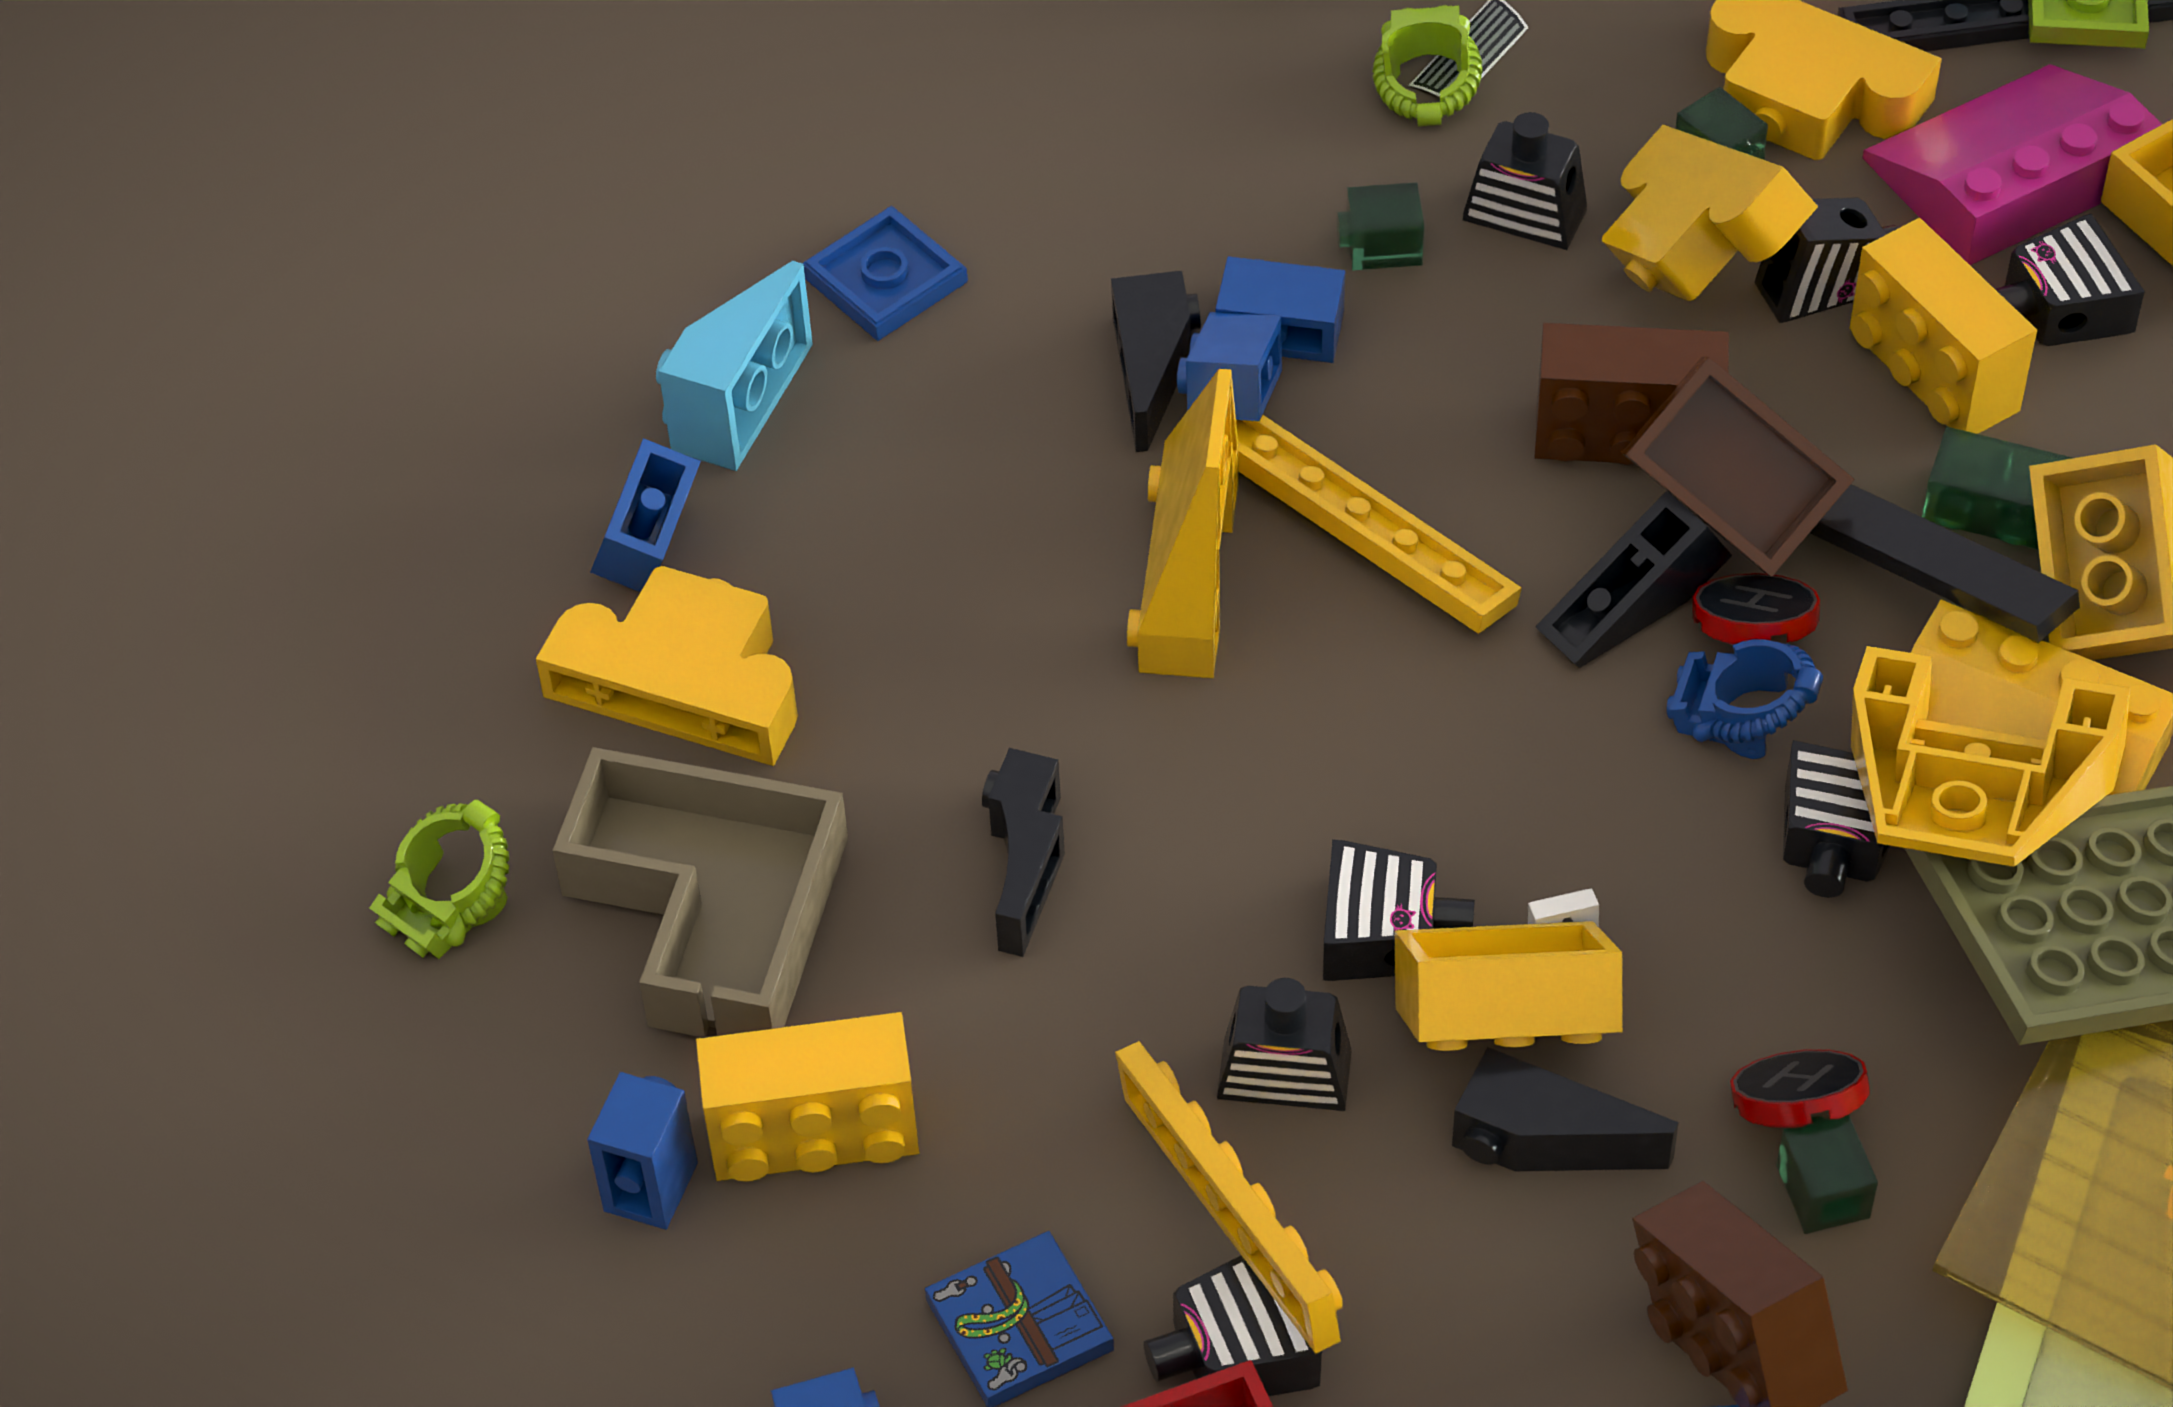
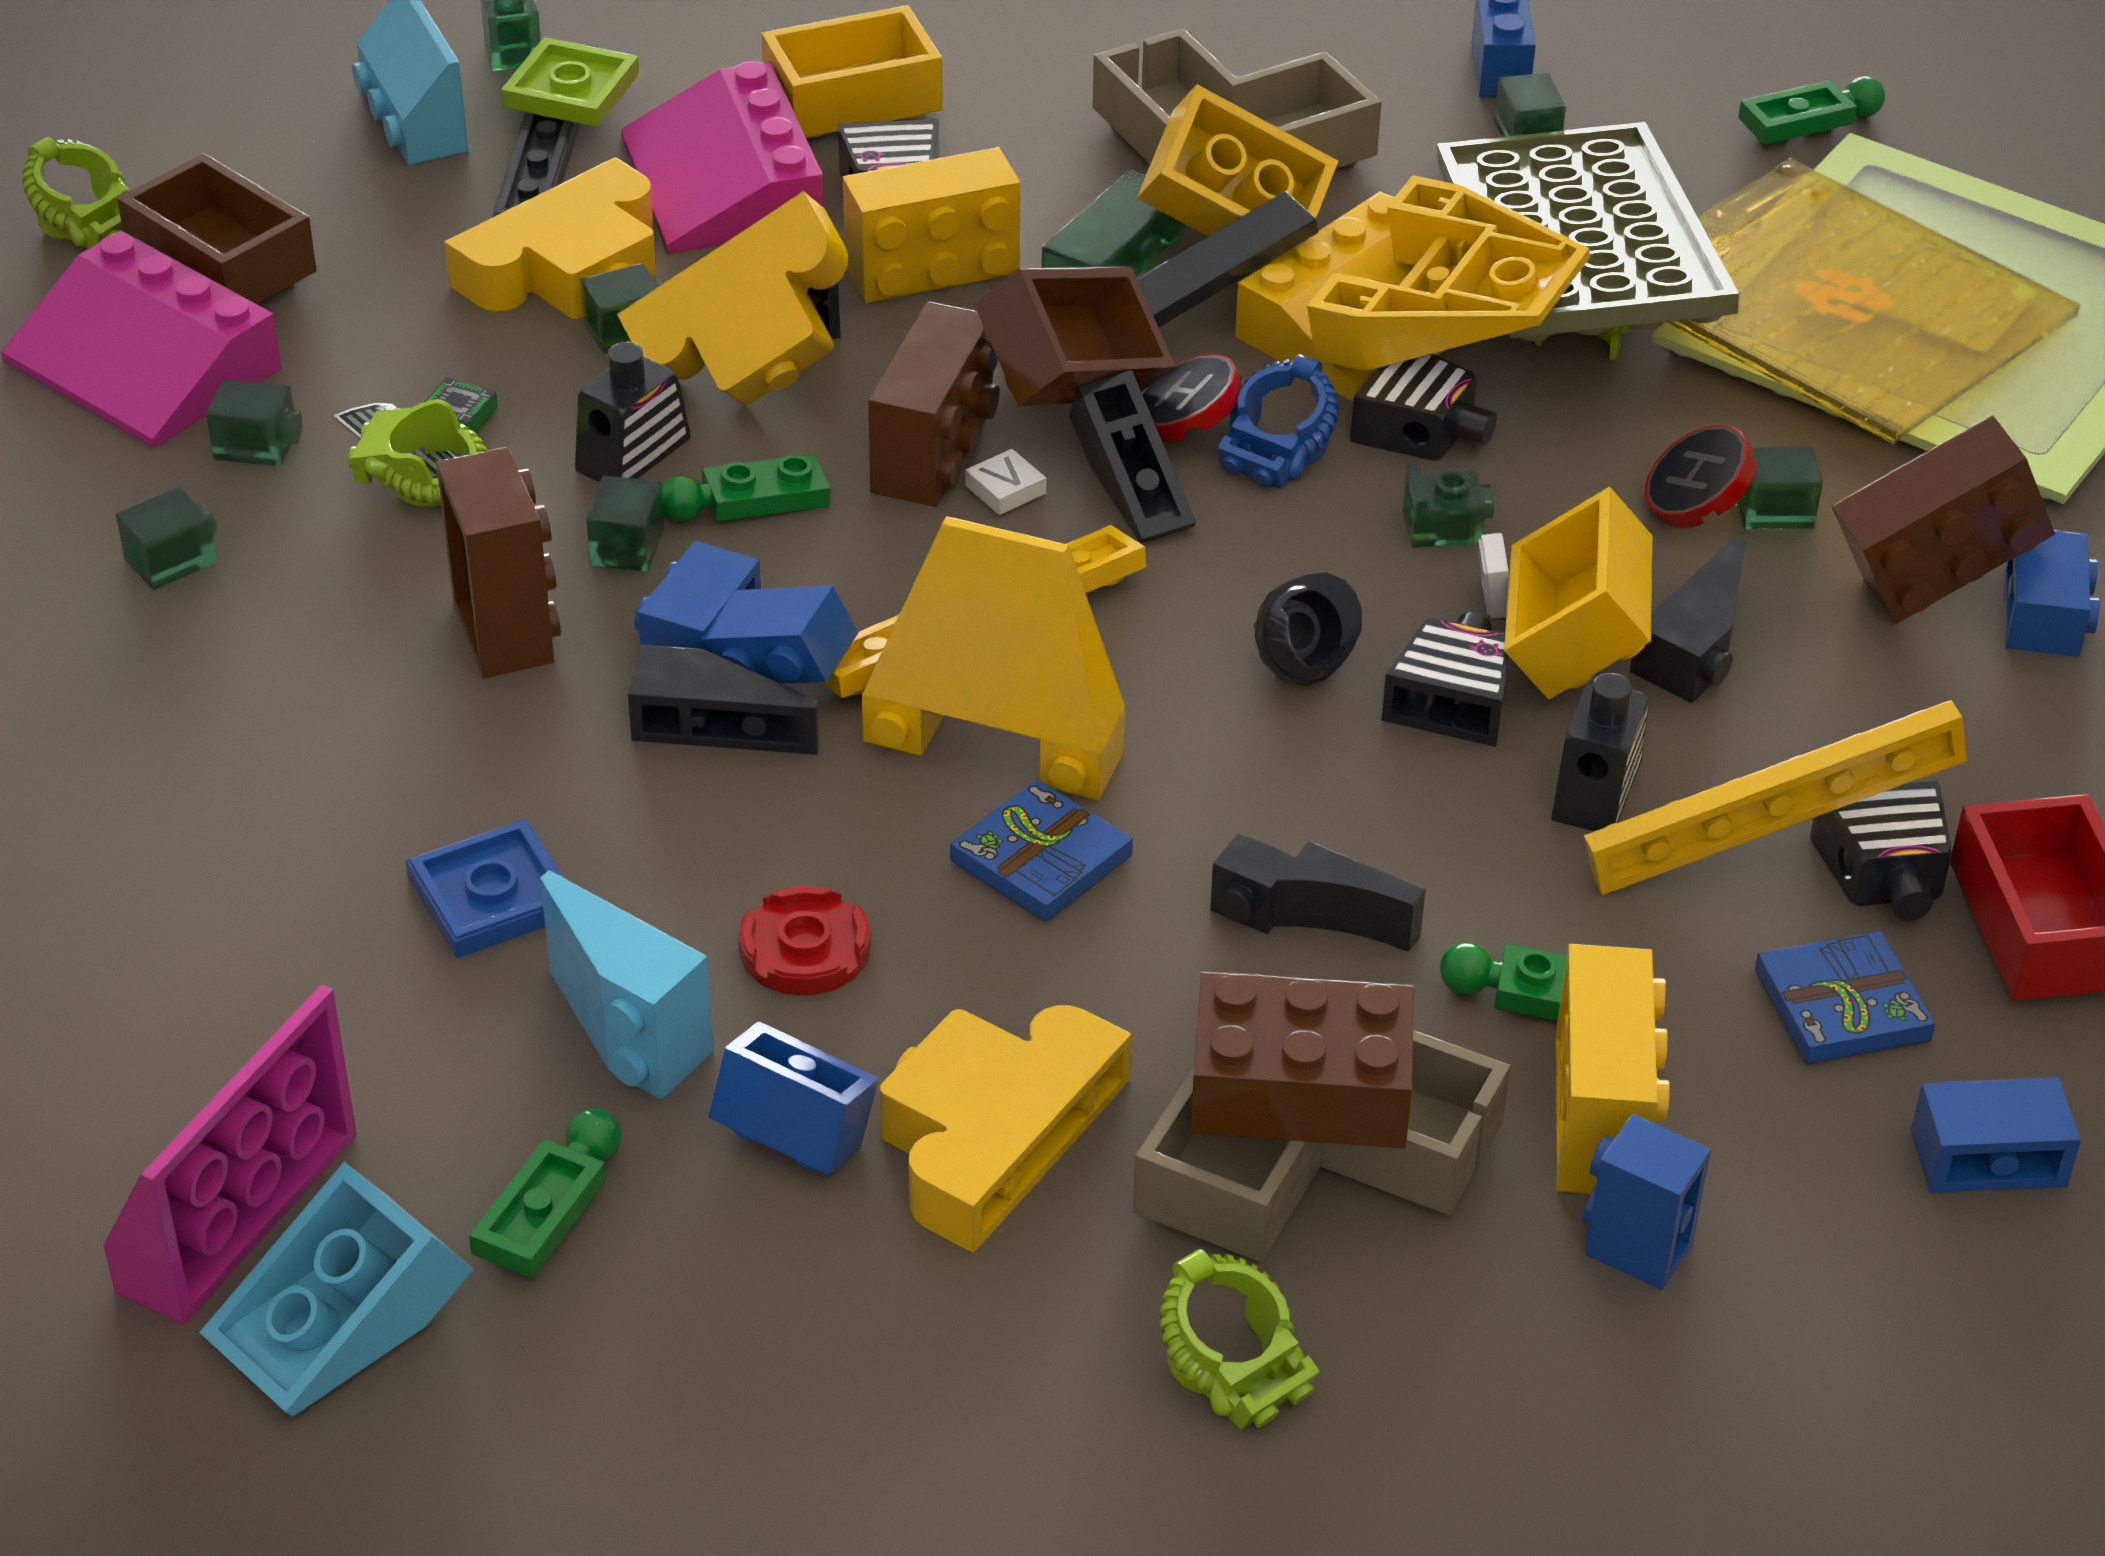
camera: 80 degrees left, 10 degrees down
(398, 300) = (334, 1293): none -> medium azure slope
(477, 187) = (236, 1167): none -> dark pink slope
(528, 398) = (547, 1195): none -> green plate
(696, 829) = (1303, 1060): none -> reddish brown piece
(878, 496) = (804, 941): none -> red tile
(961, 1059) = (1524, 980): none -> green plate
(1042, 637) = (1041, 849): none -> blue tile
(1228, 131) = (498, 561): none -> reddish brown piece
(1396, 770) = (1308, 627): none -> black piece
(1483, 305) = (748, 489): none -> green plate
(1528, 70) = (470, 402): none -> tile
(1581, 498) = (1005, 481): none -> white tile
(1670, 864) = (1445, 507): none -> clear green brick

